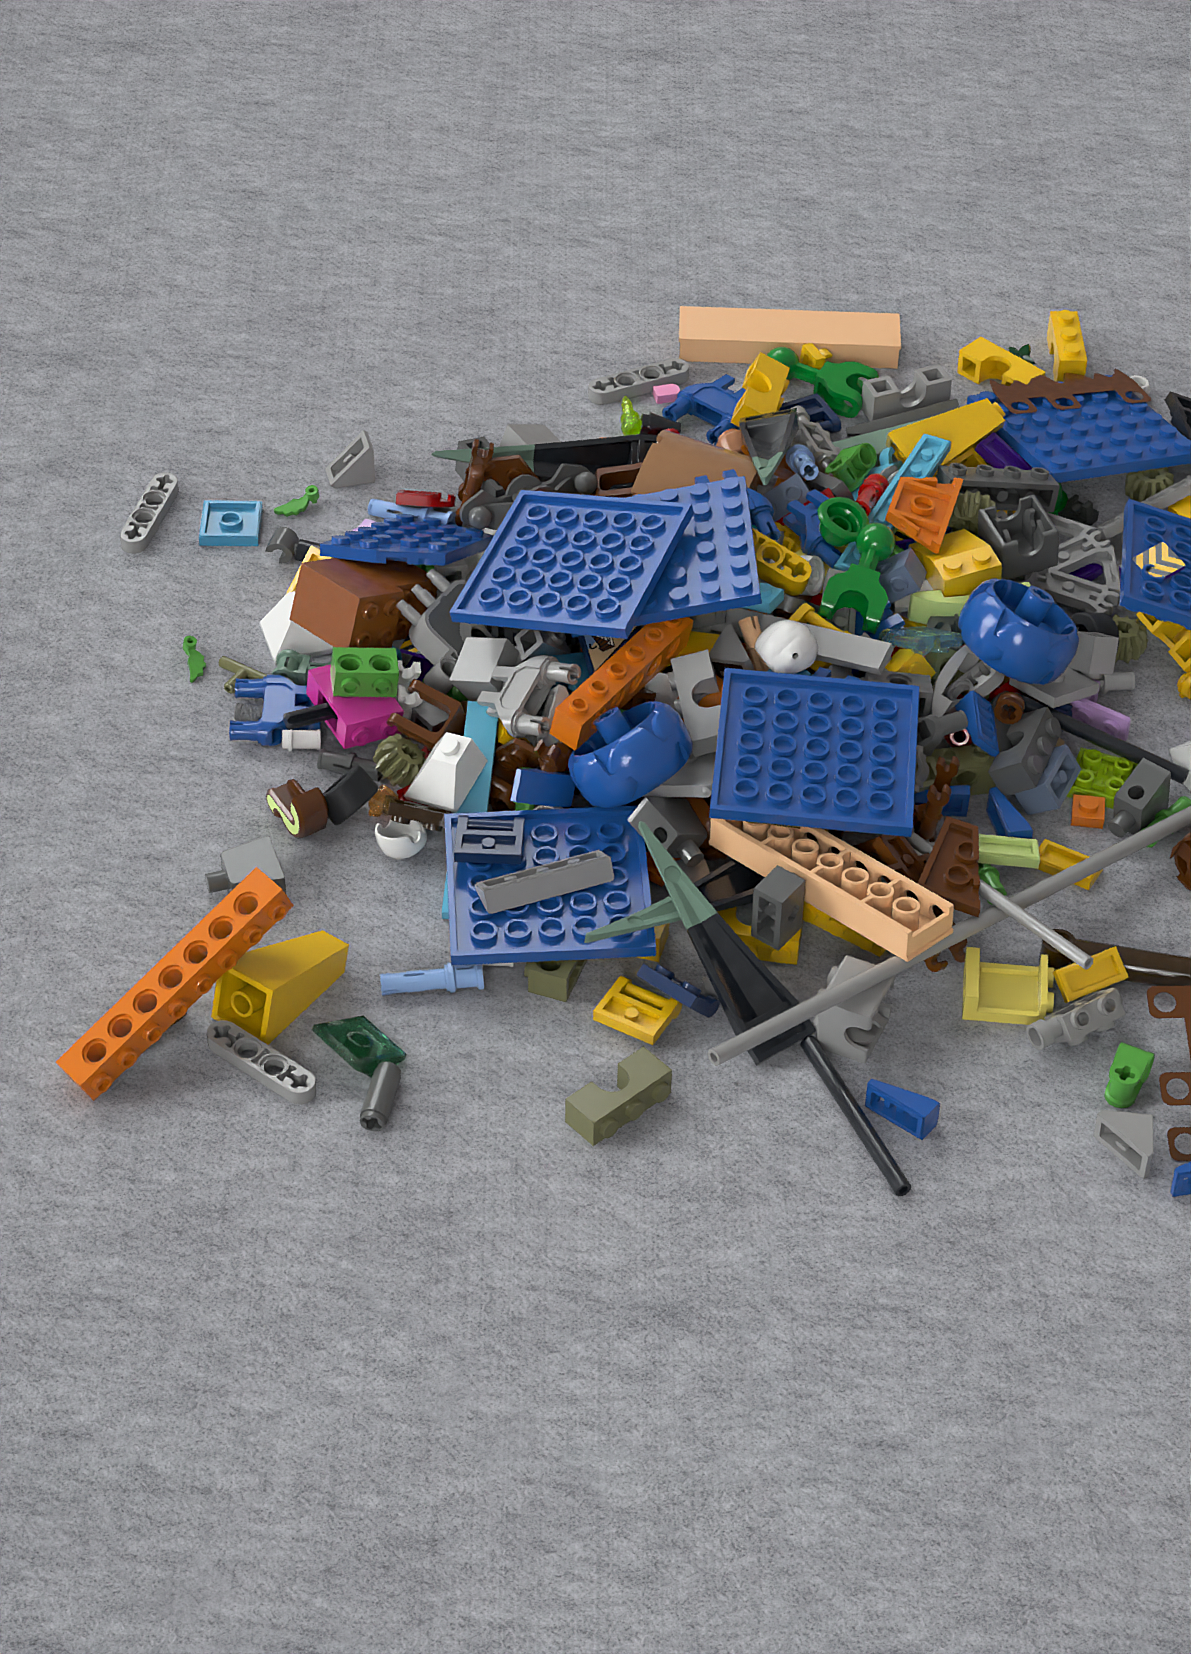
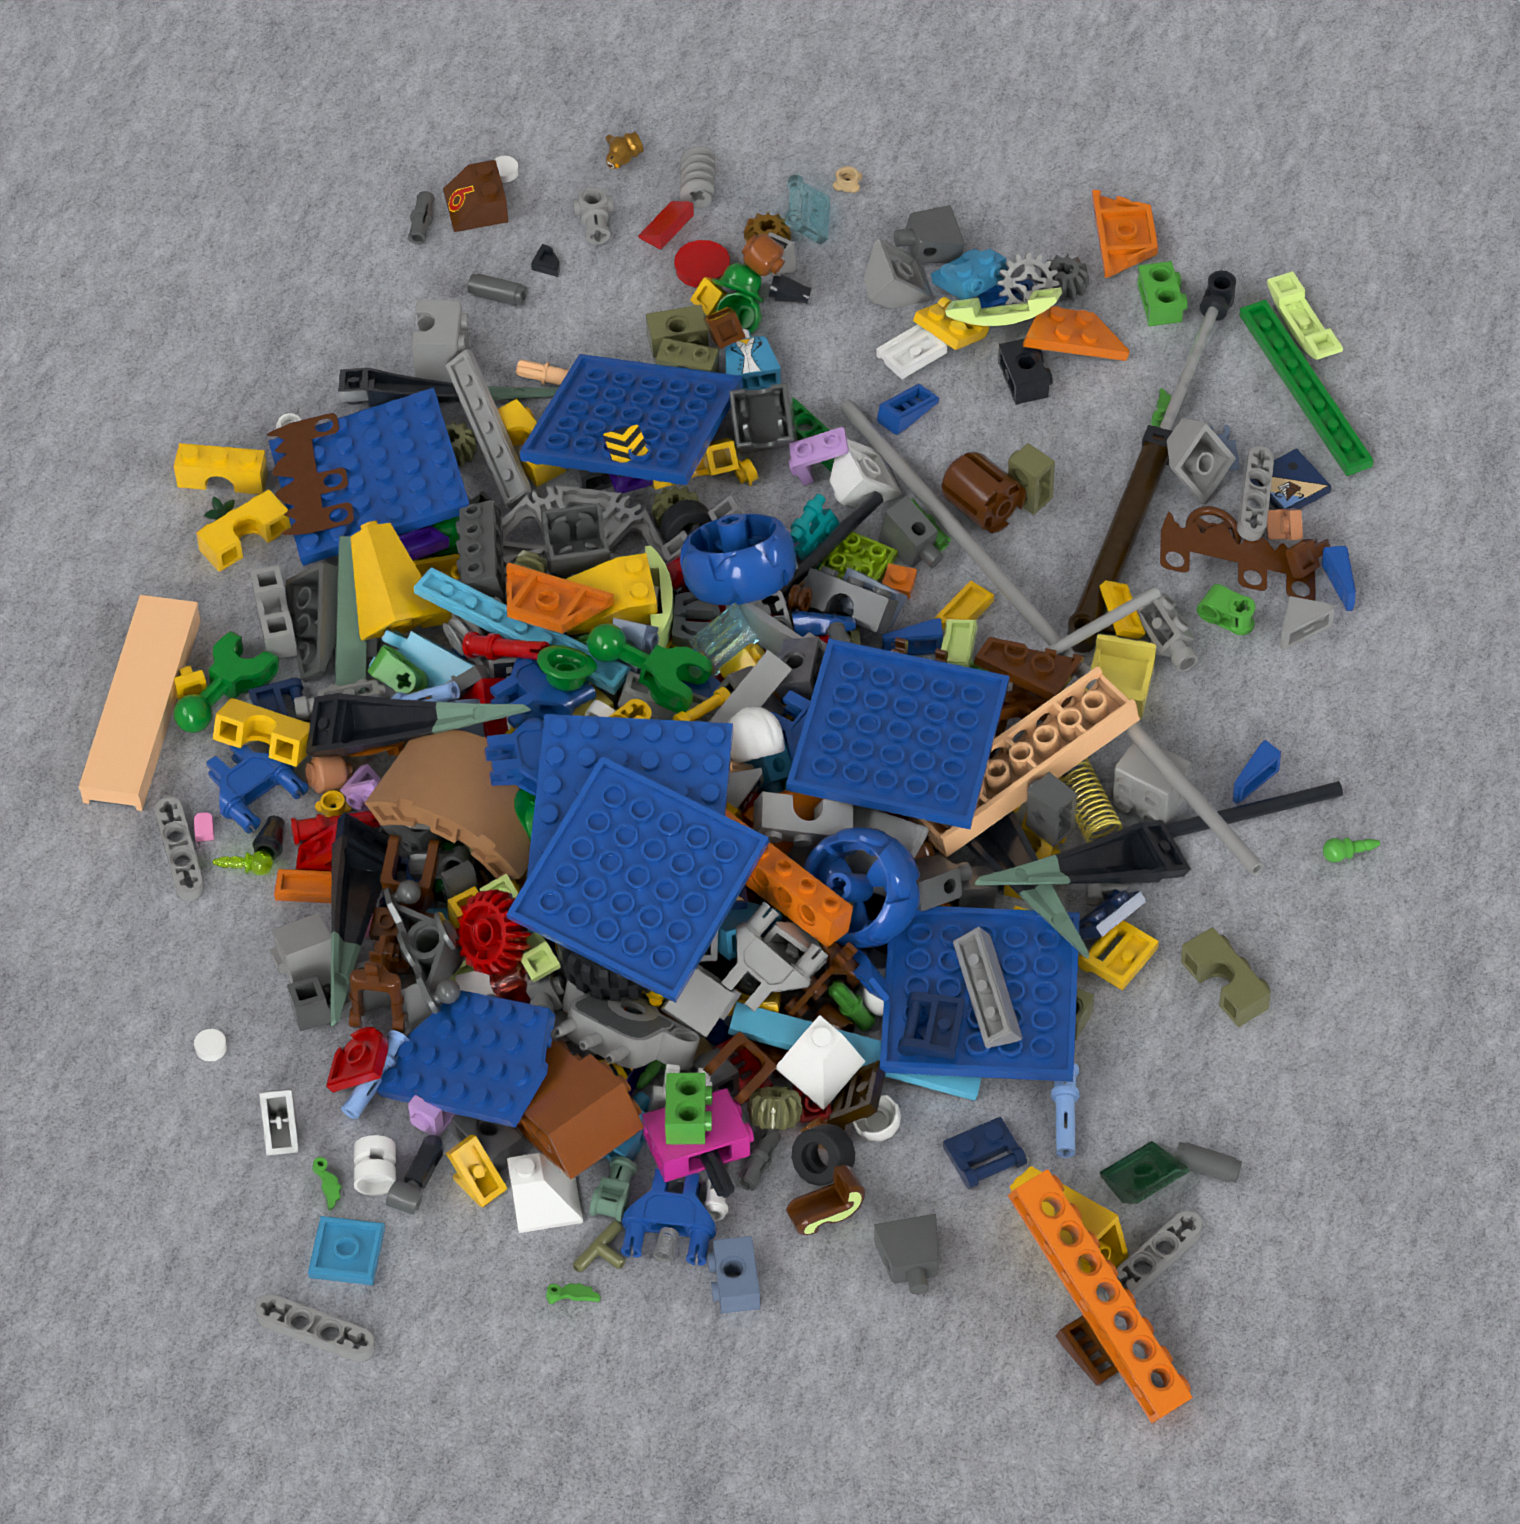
camera: 80 degrees left, 10 degrees up
(215, 757) = (738, 1257): none -> sand blue brick
(312, 520) = (374, 1165): none -> white wheel
(383, 919) = (980, 1145): none -> dark blue plate
(434, 422) = (210, 1045): none -> white tile
(791, 973) = (1094, 827): none -> light yellow piece
(813, 1188) = (1337, 849): none -> bright green bar
(1131, 735) = (811, 535): none -> teal plate

